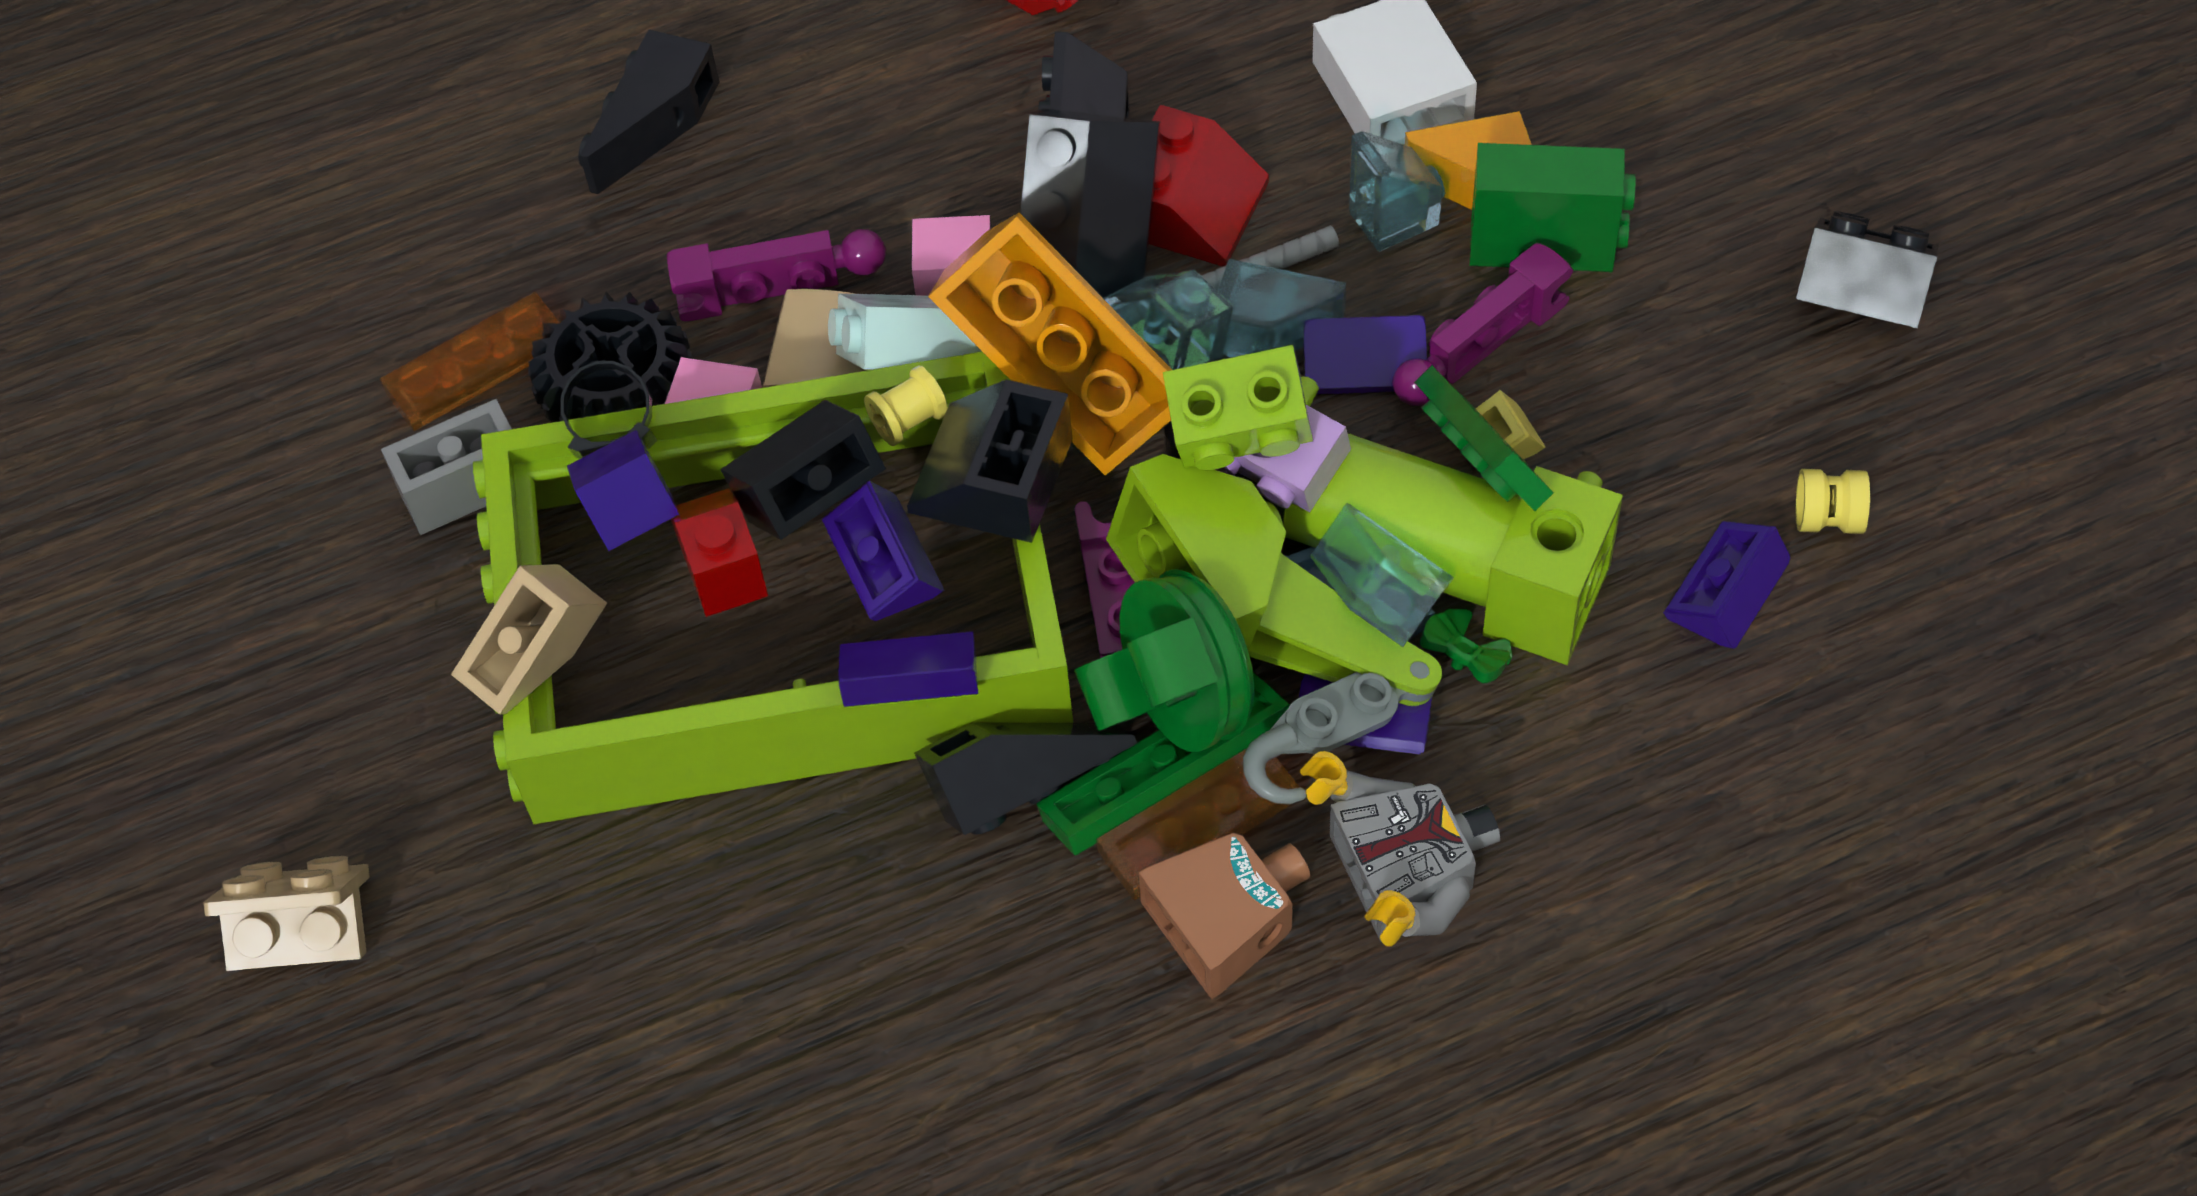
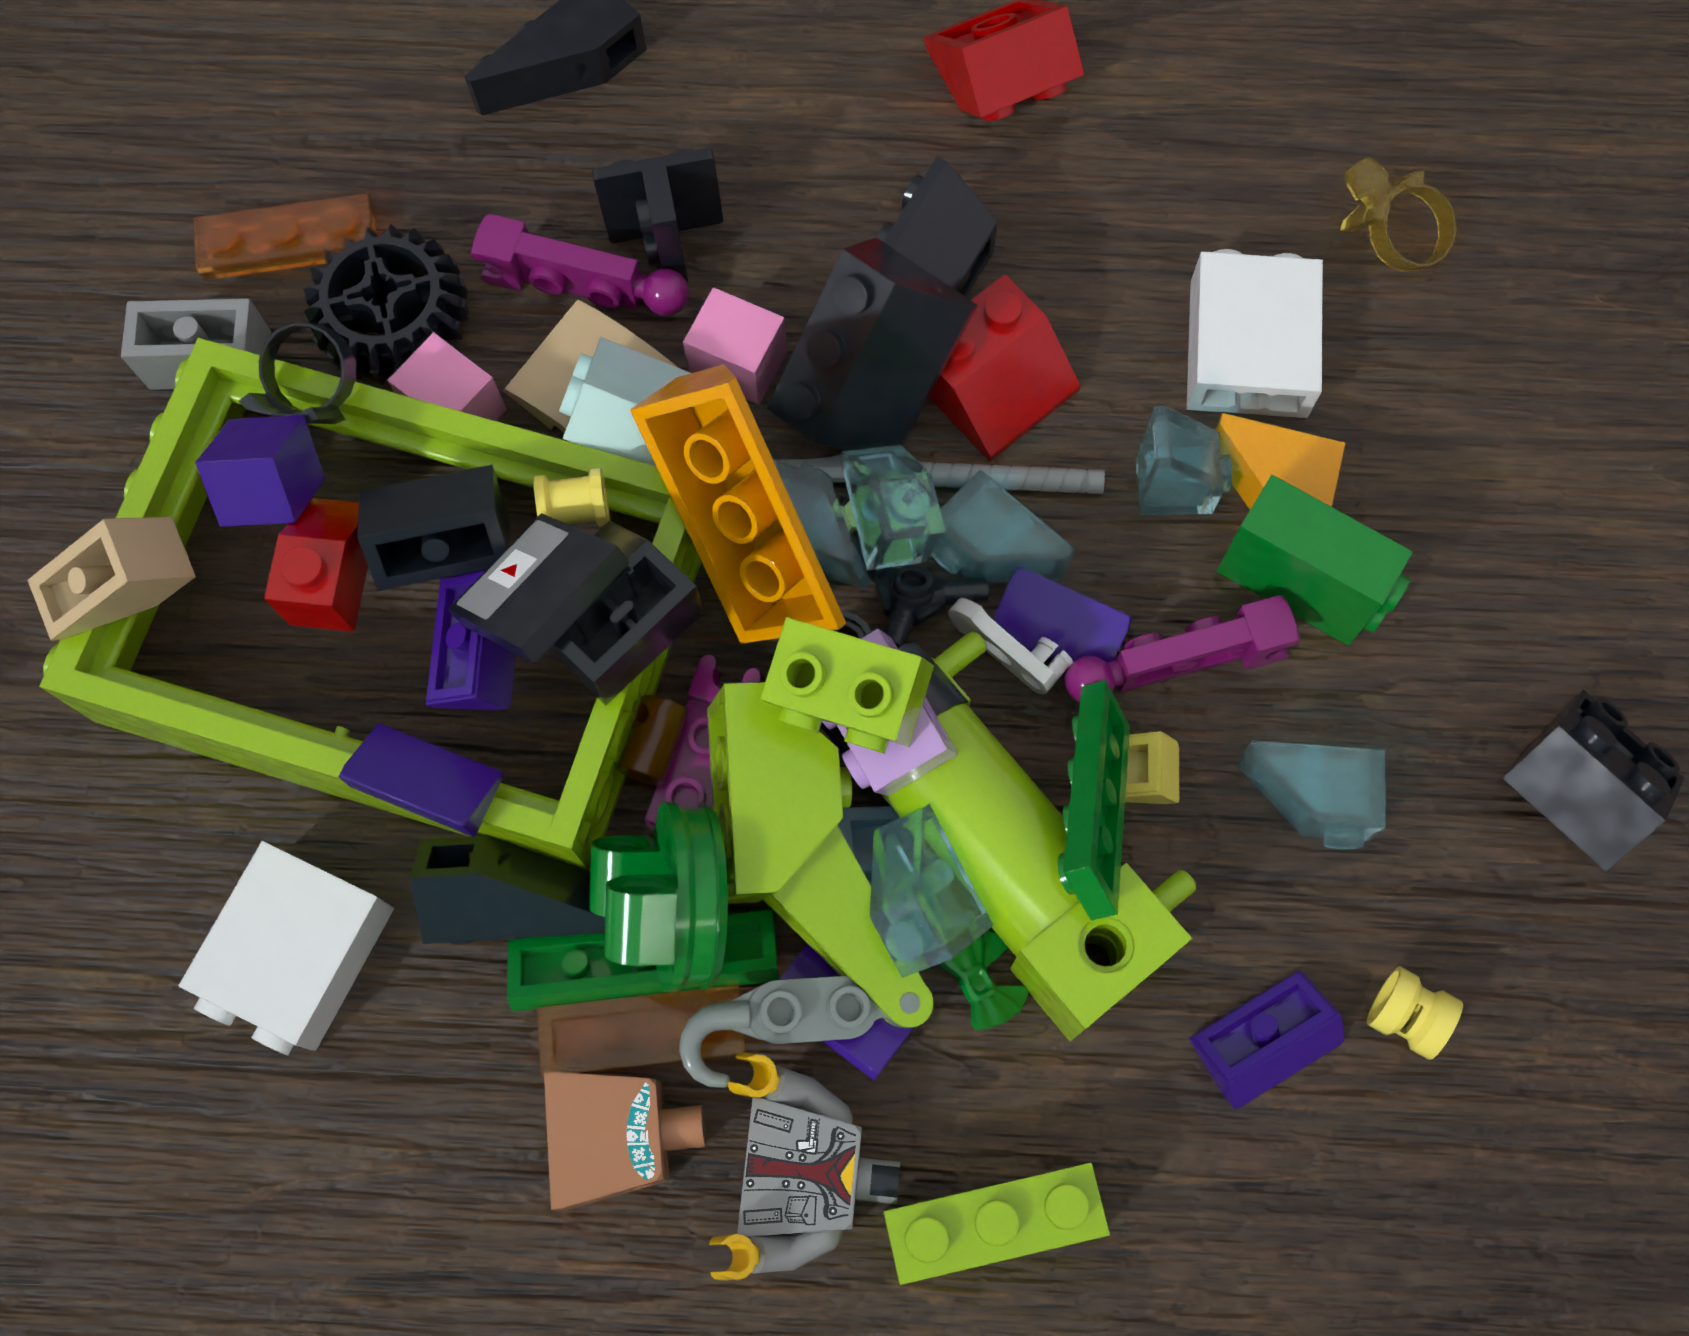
camera: 25 degrees right, 15 degrees up
(821, 178) = (658, 200): none -> black bracket
(839, 902) = (285, 950): none -> white brick
(931, 458) = (539, 587): none -> black tile
(1074, 585) = (652, 740): none -> reddish brown piece
(1359, 391) = (1008, 651): none -> white piece
(1589, 810) = (995, 1223): none -> lime brick
(1654, 375) = (1322, 788): none -> clear light blue slope

